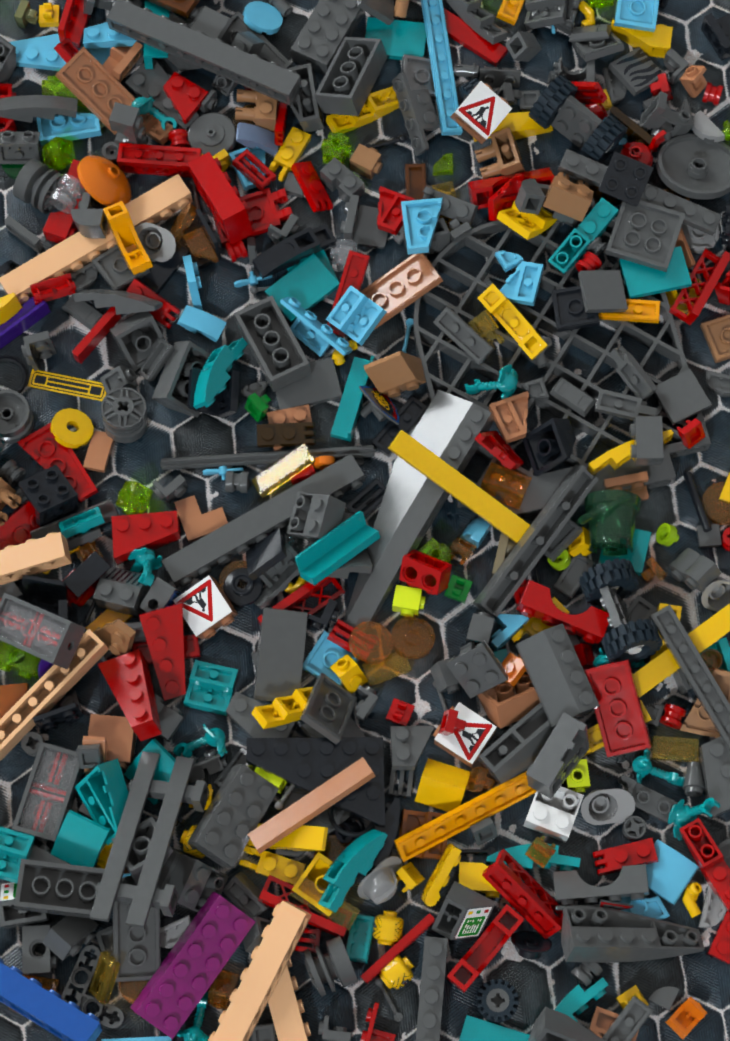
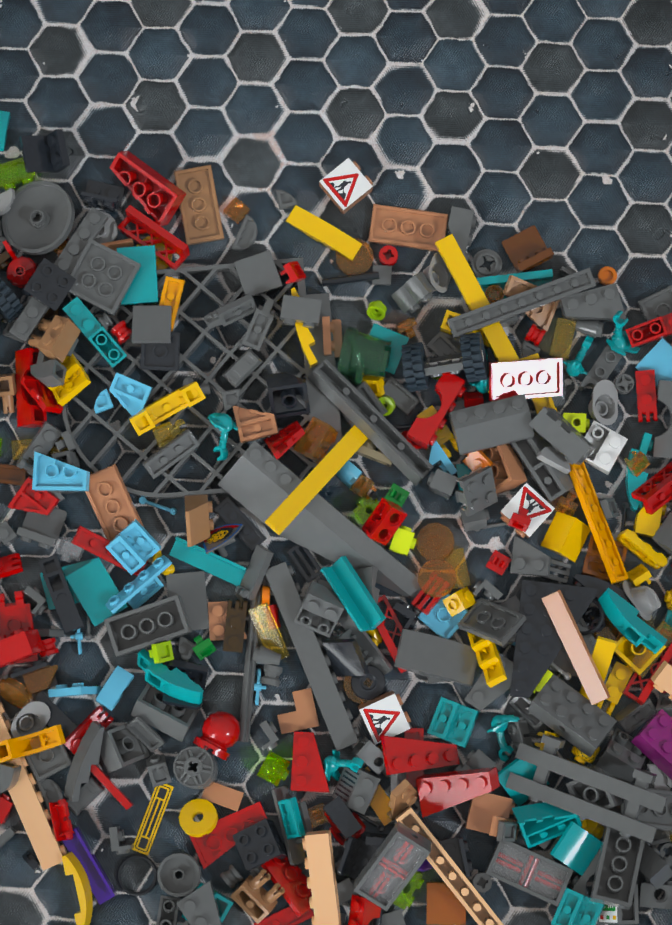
camera: 85 degrees left, 10 degrees up
(164, 433) = (219, 733): none -> red tile
(245, 359) = (161, 652): none -> lime tile
(256, 470) = (266, 656): none -> dark grey cone
(346, 445) = (255, 573): none -> dark grey hinge
(530, 749) = (554, 458): none -> light grey tile

